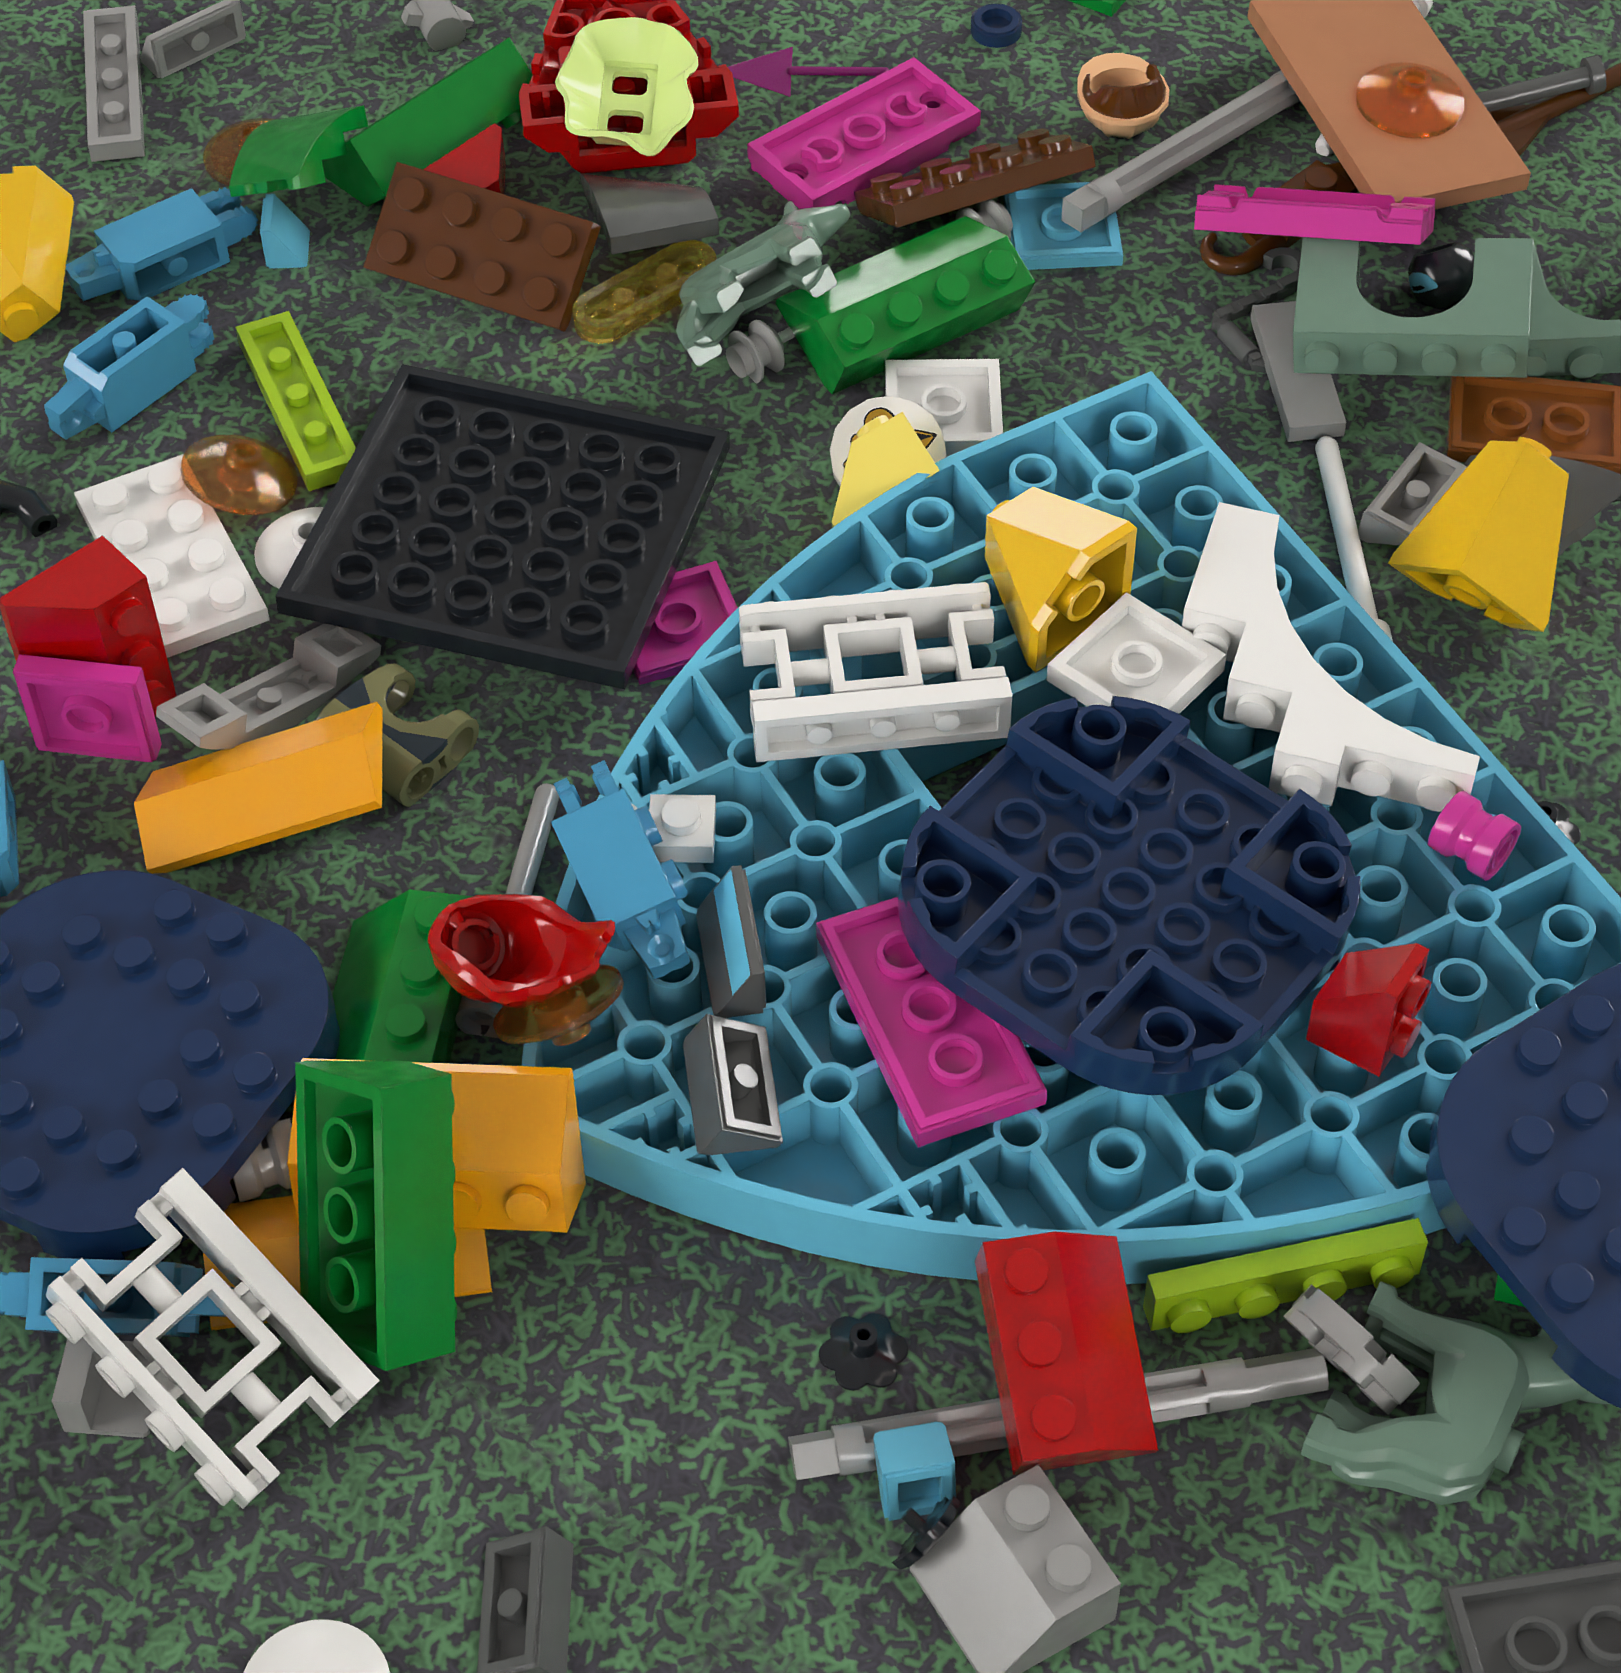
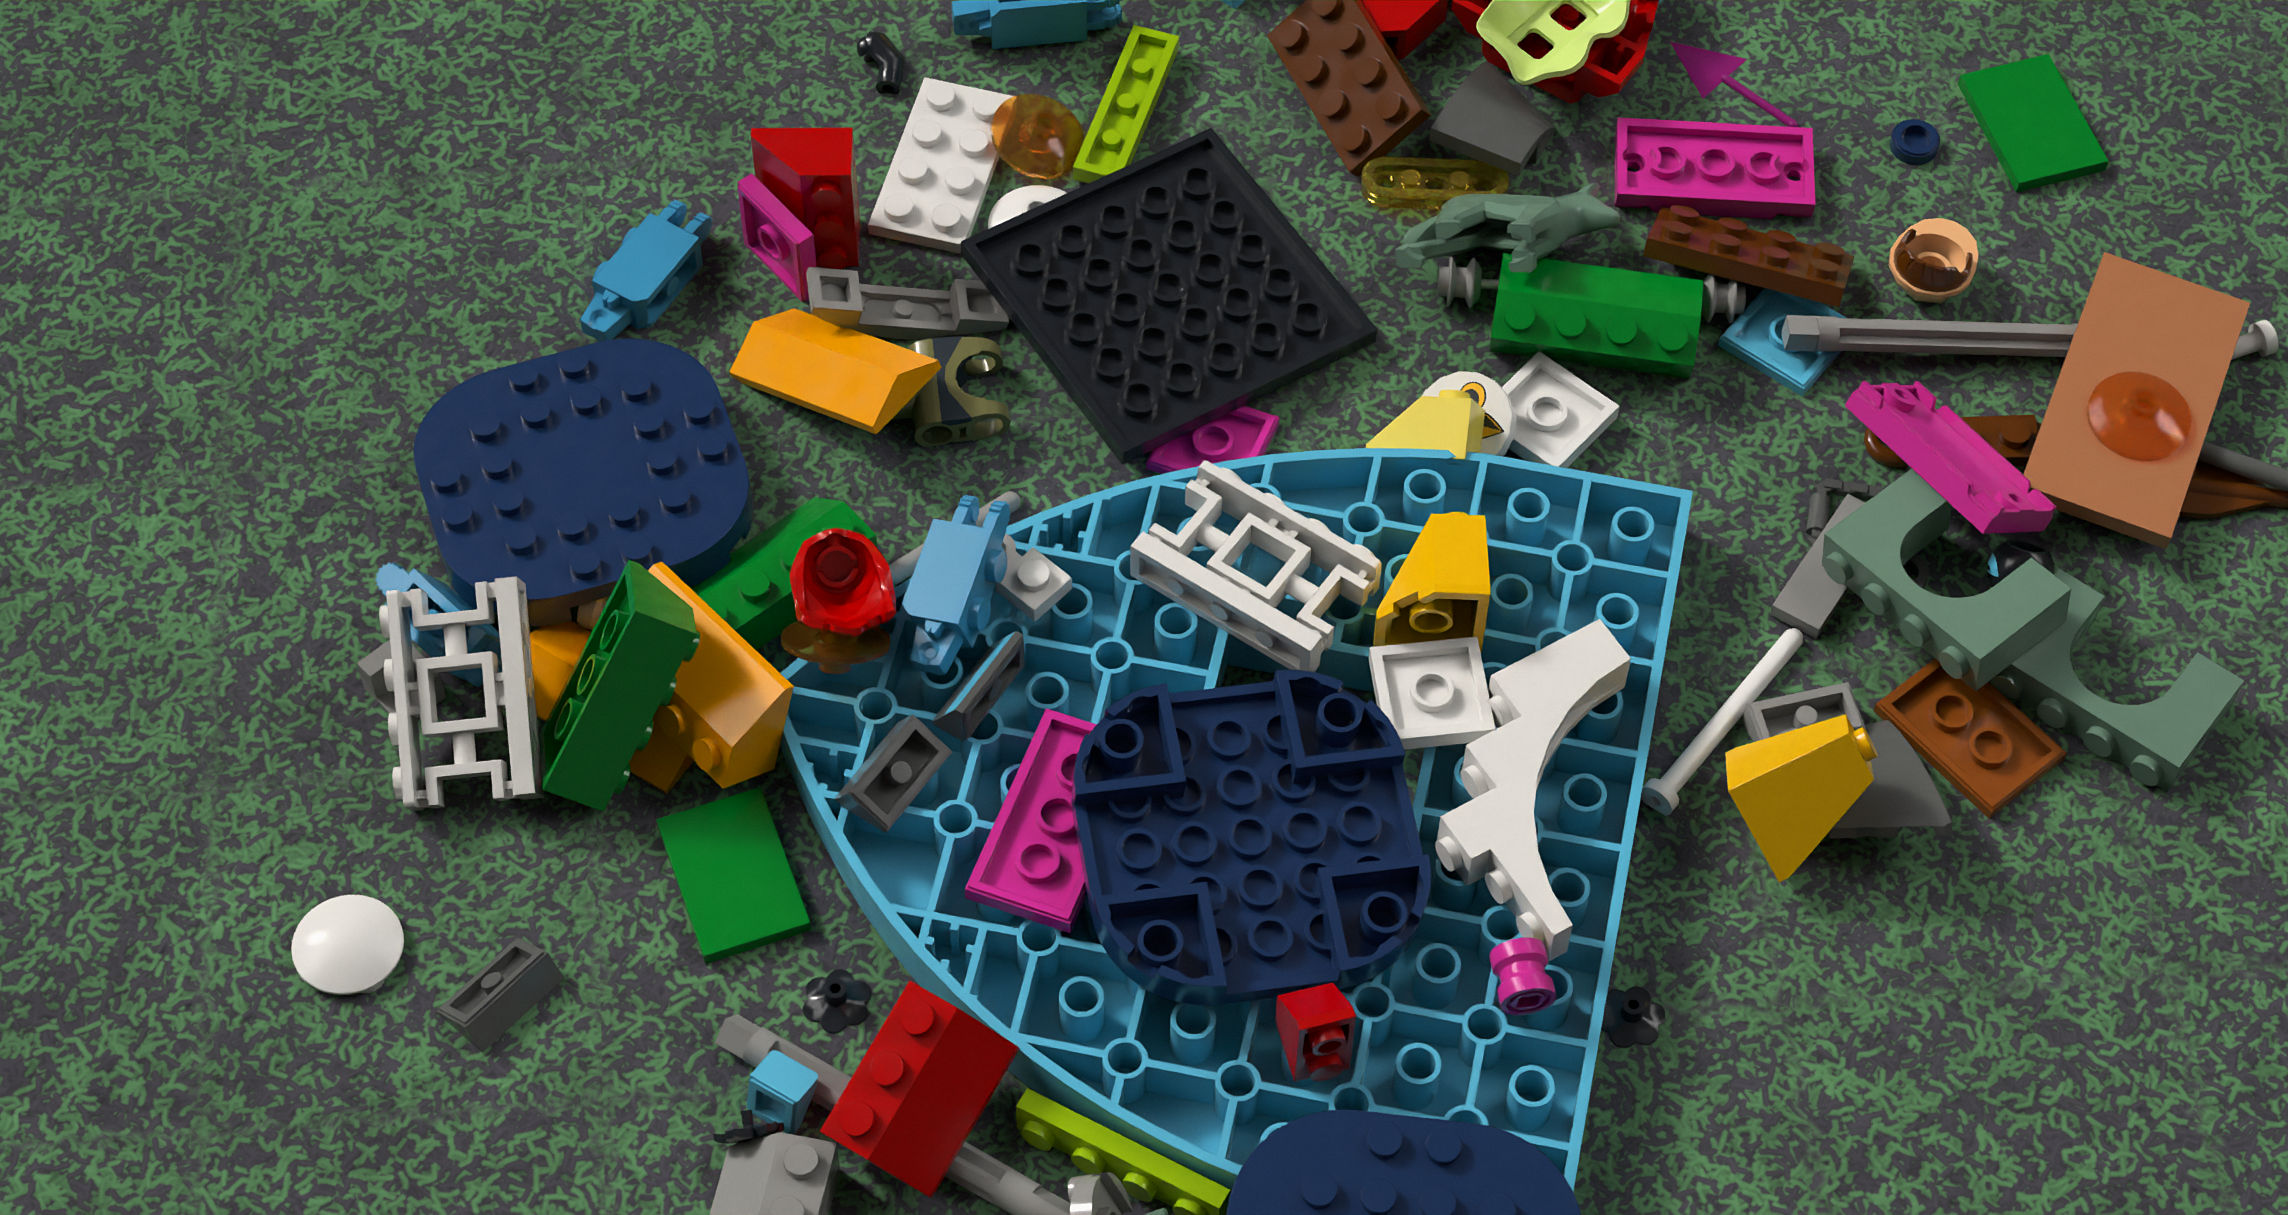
camera: 40 degrees right, 5 degrees up
(642, 1314) = (733, 875): none -> green tile

